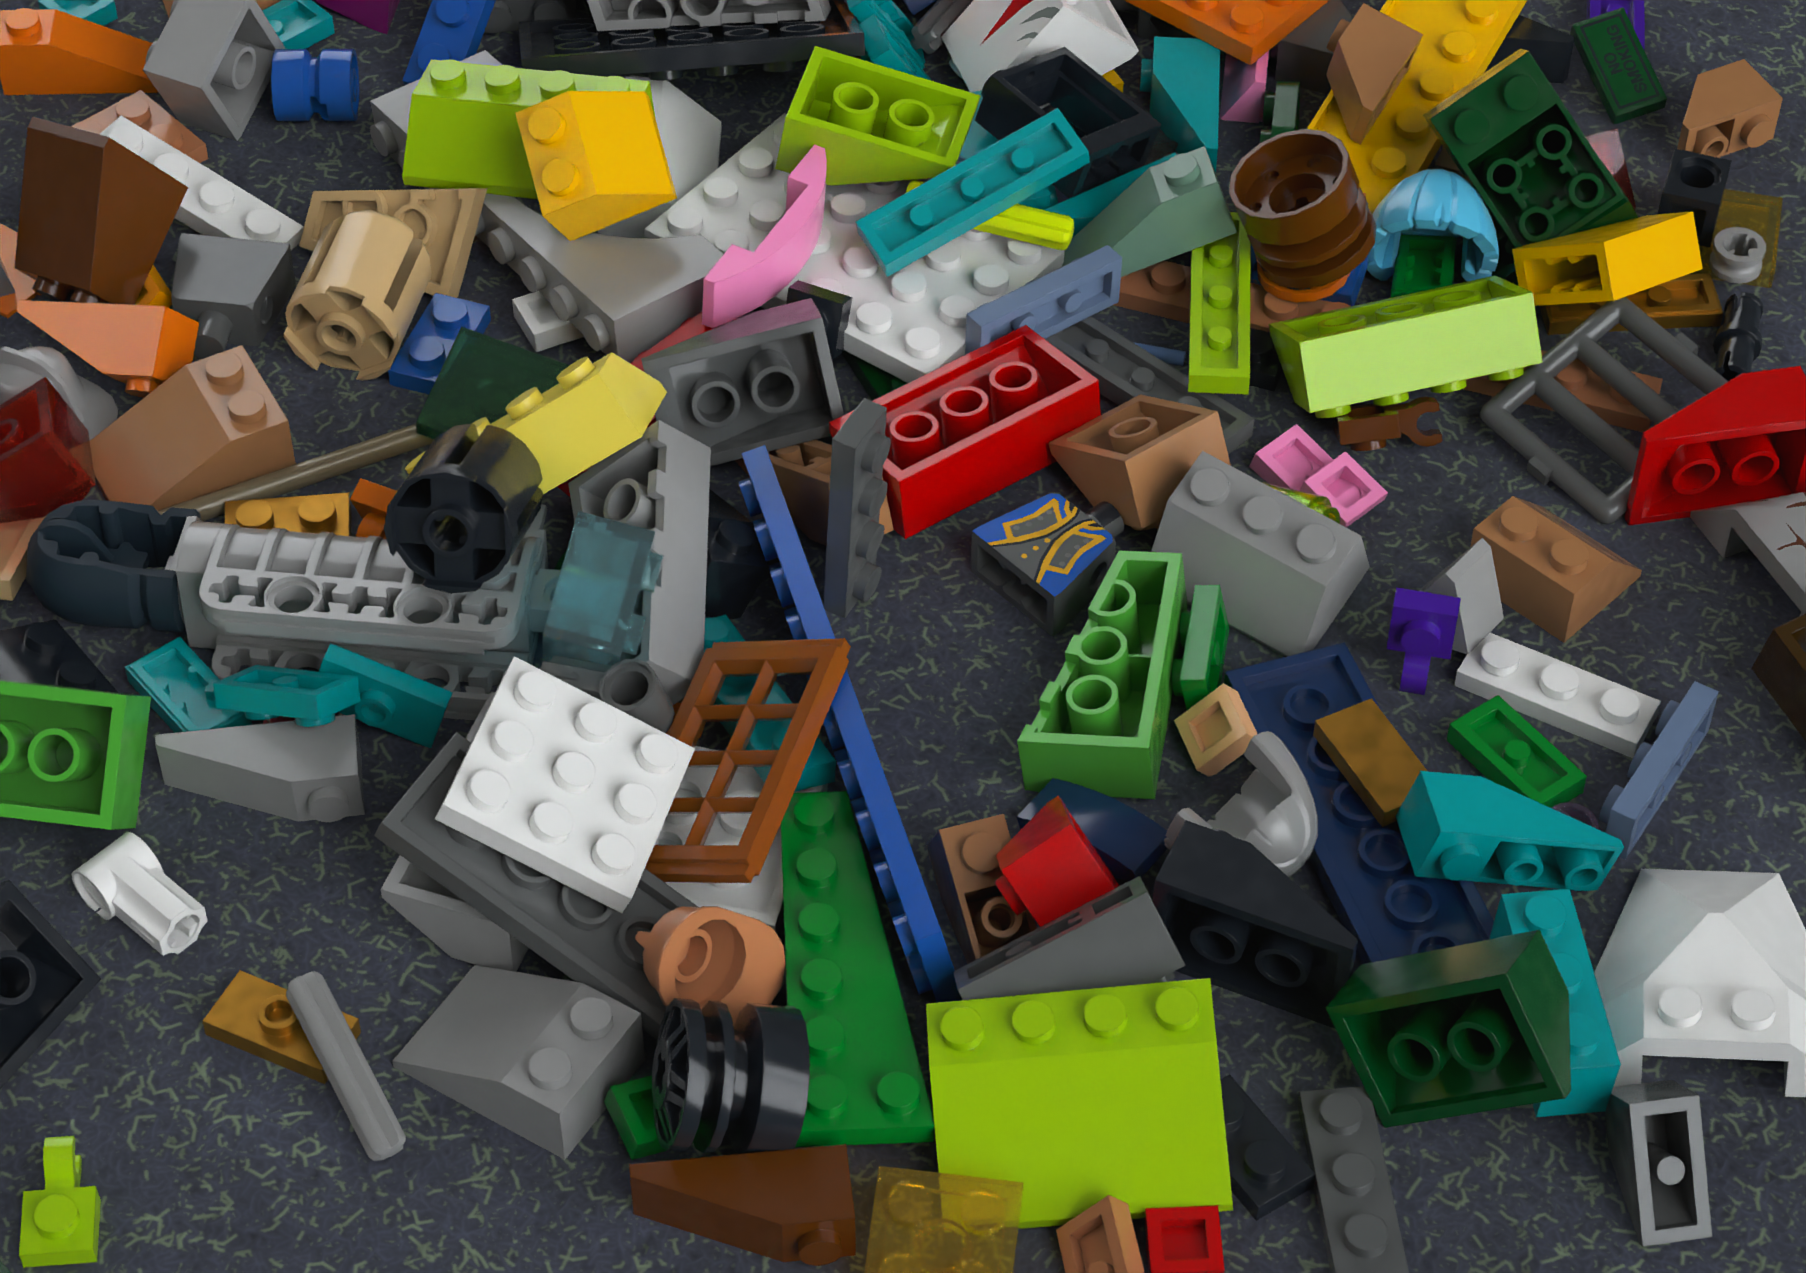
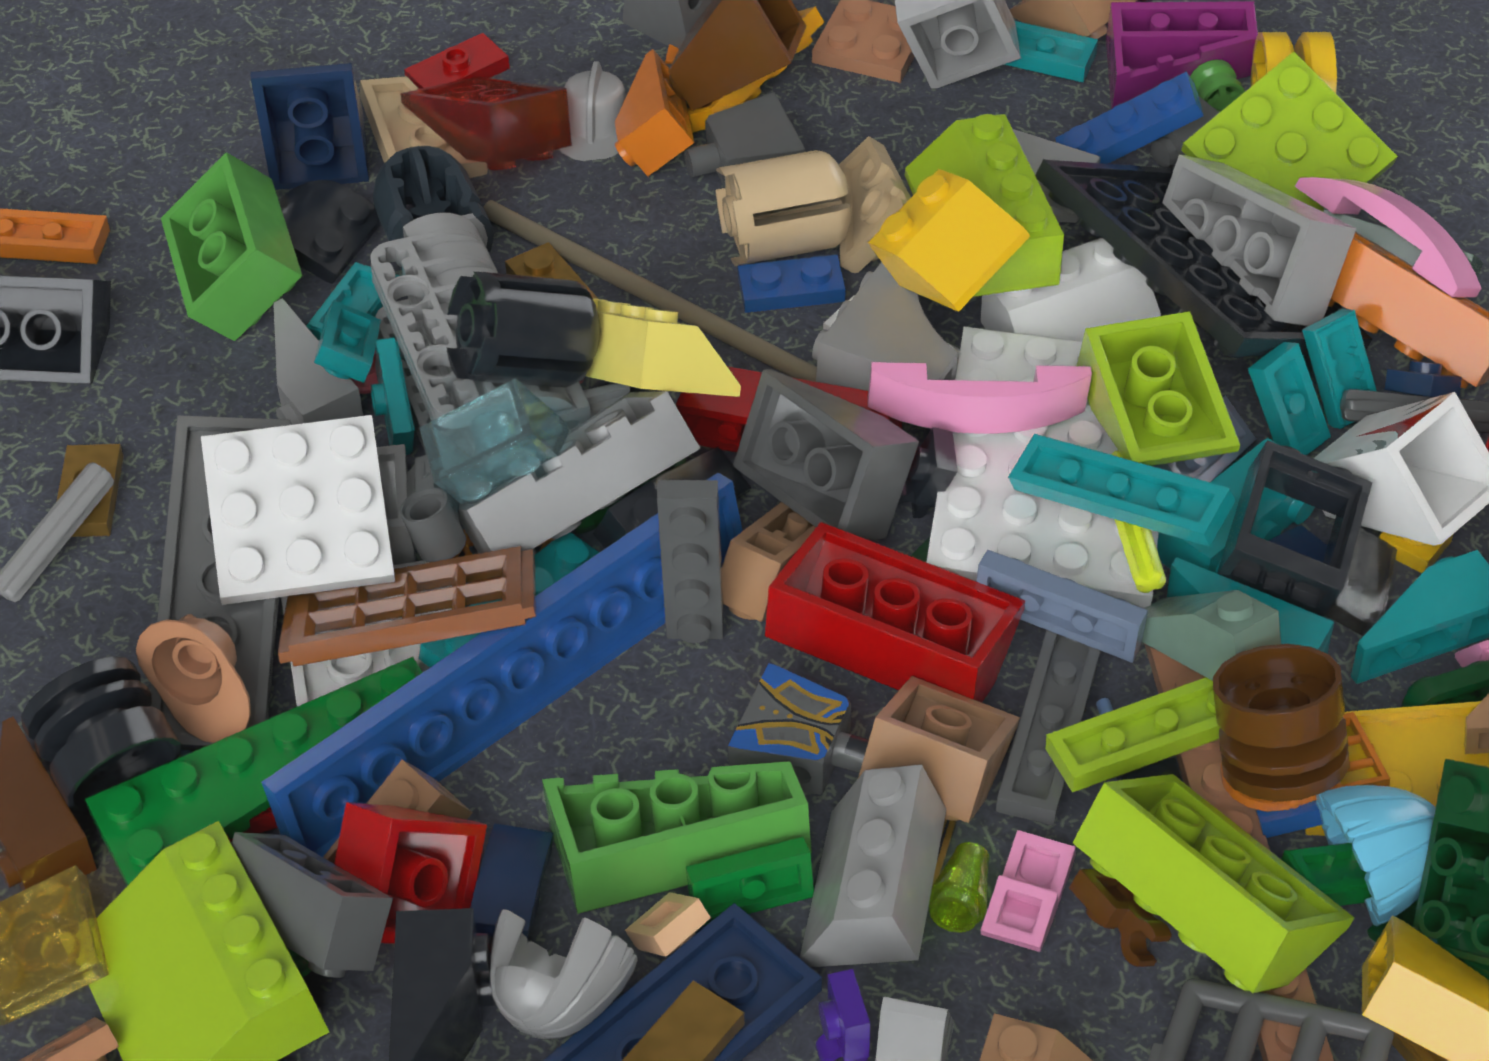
camera: 65 degrees right, 0 degrees up
(132, 885) = (161, 358): white piece -> none
(194, 435) = (600, 200): medium nougat slope -> none
(211, 202) = (837, 81): white plate -> none
(315, 85) = (997, 86): blue wheel -> none
(481, 381) = (746, 323): clear green tile -> none
(527, 1052) = (98, 617): light grey slope -> none

